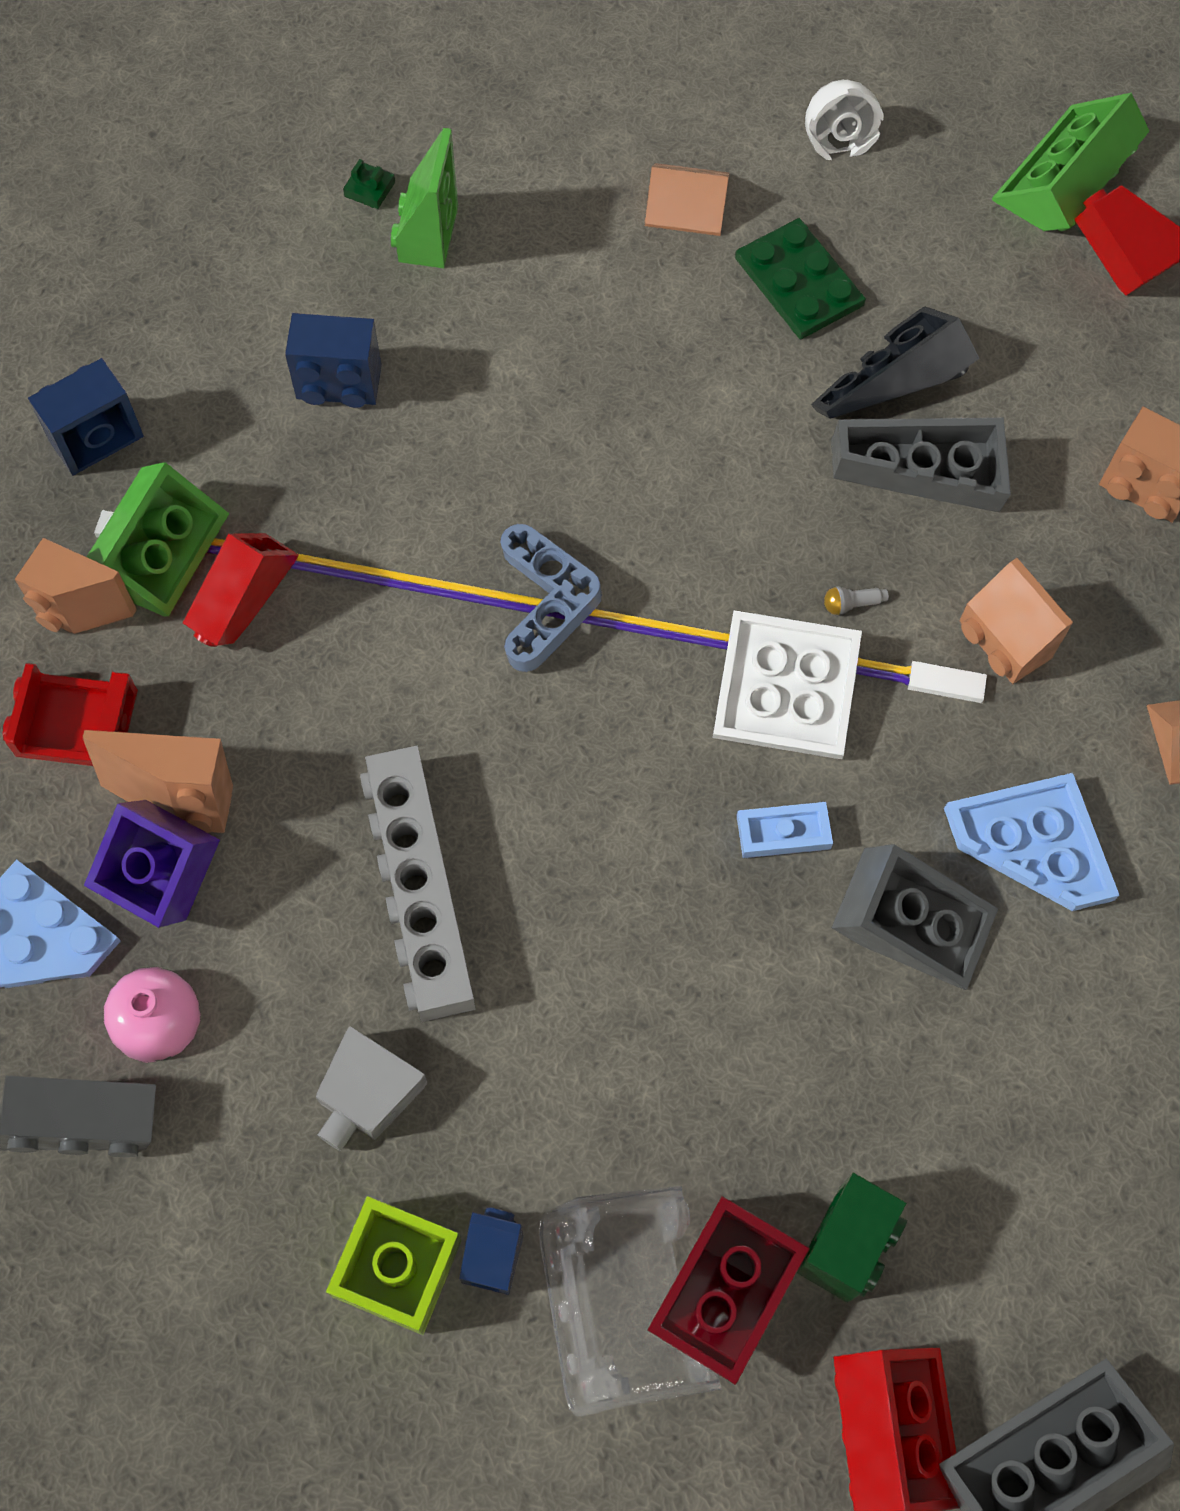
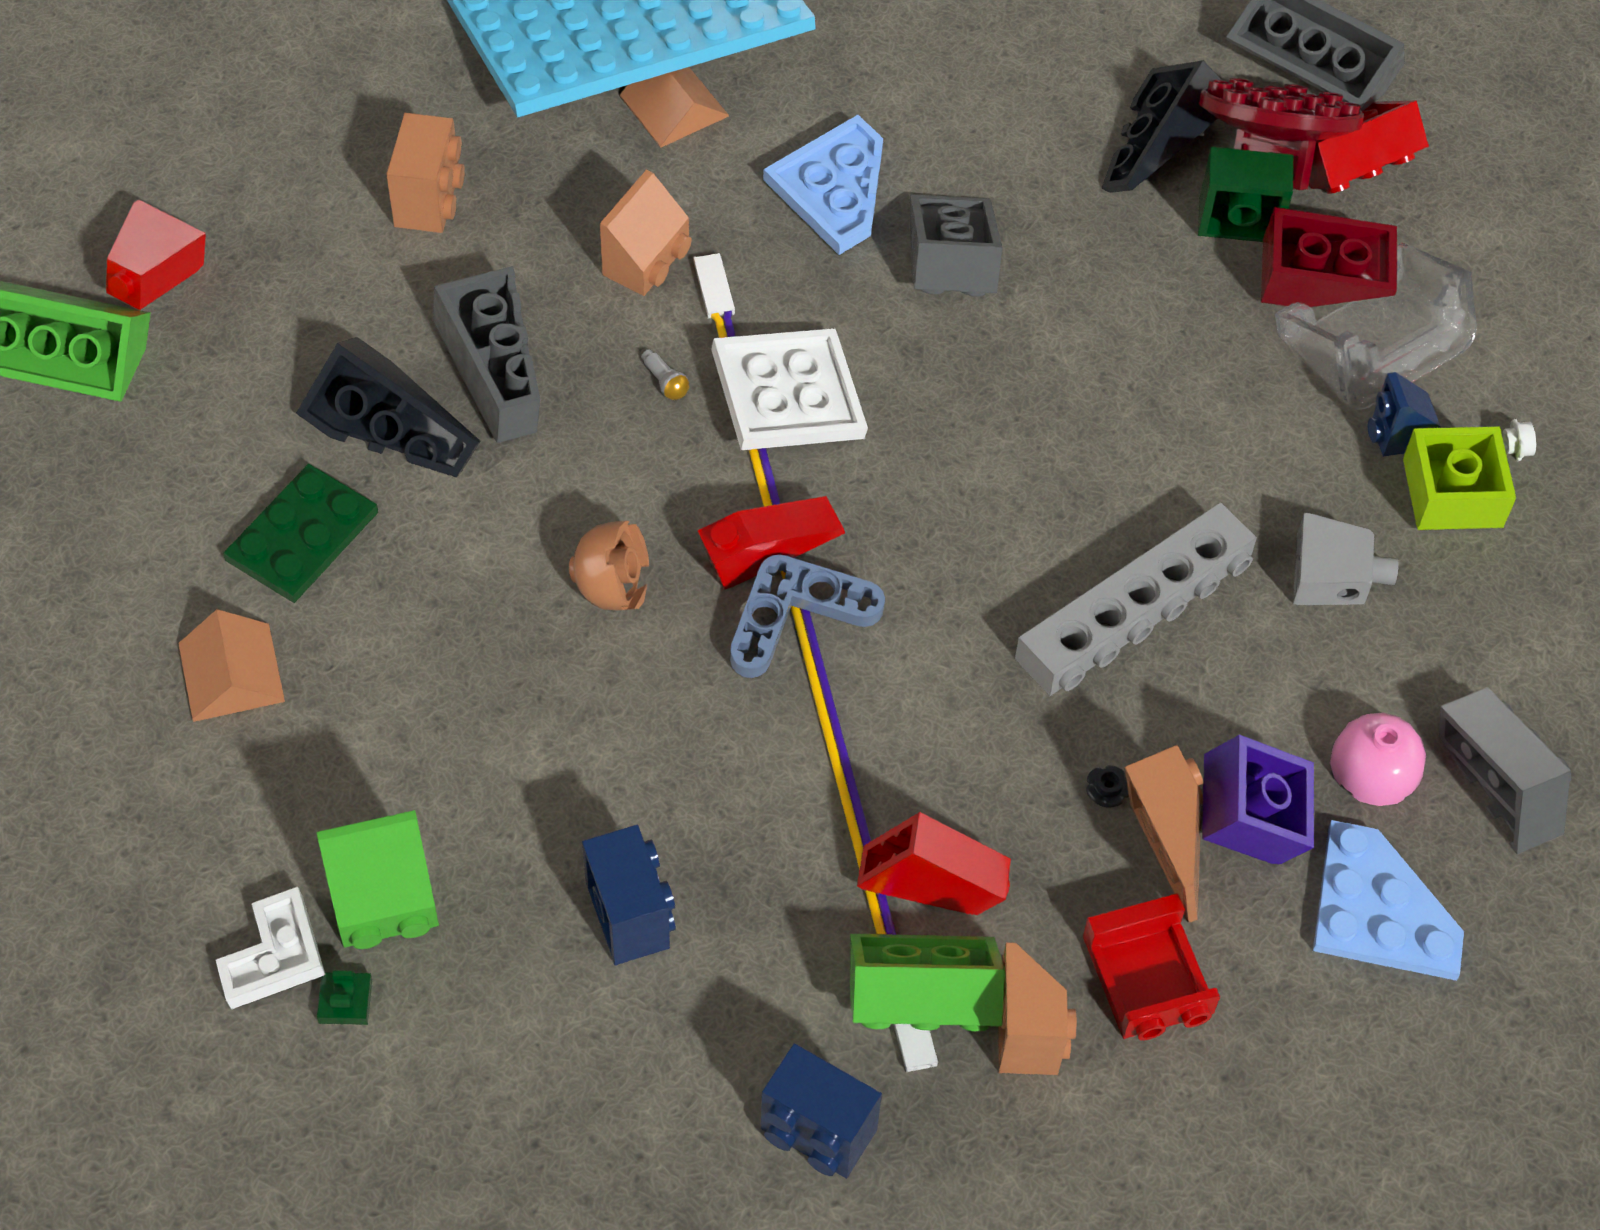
camera: 115 degrees left, 10 degrees down
(258, 779) = (1106, 796): none -> black plate
(414, 138) = (282, 959): none -> white plate
(422, 1379) = (1519, 439): none -> white plate
(625, 596) = (750, 536): none -> red slope
(645, 460) = (606, 560): none -> nougat cylinder
(784, 830) = (927, 353): light blue plate -> none
(847, 112) = (71, 547): white cylinder -> none
(937, 1324) = (1281, 119): none -> dark red bracket
(1010, 1242) = (1164, 125): none -> black wedge

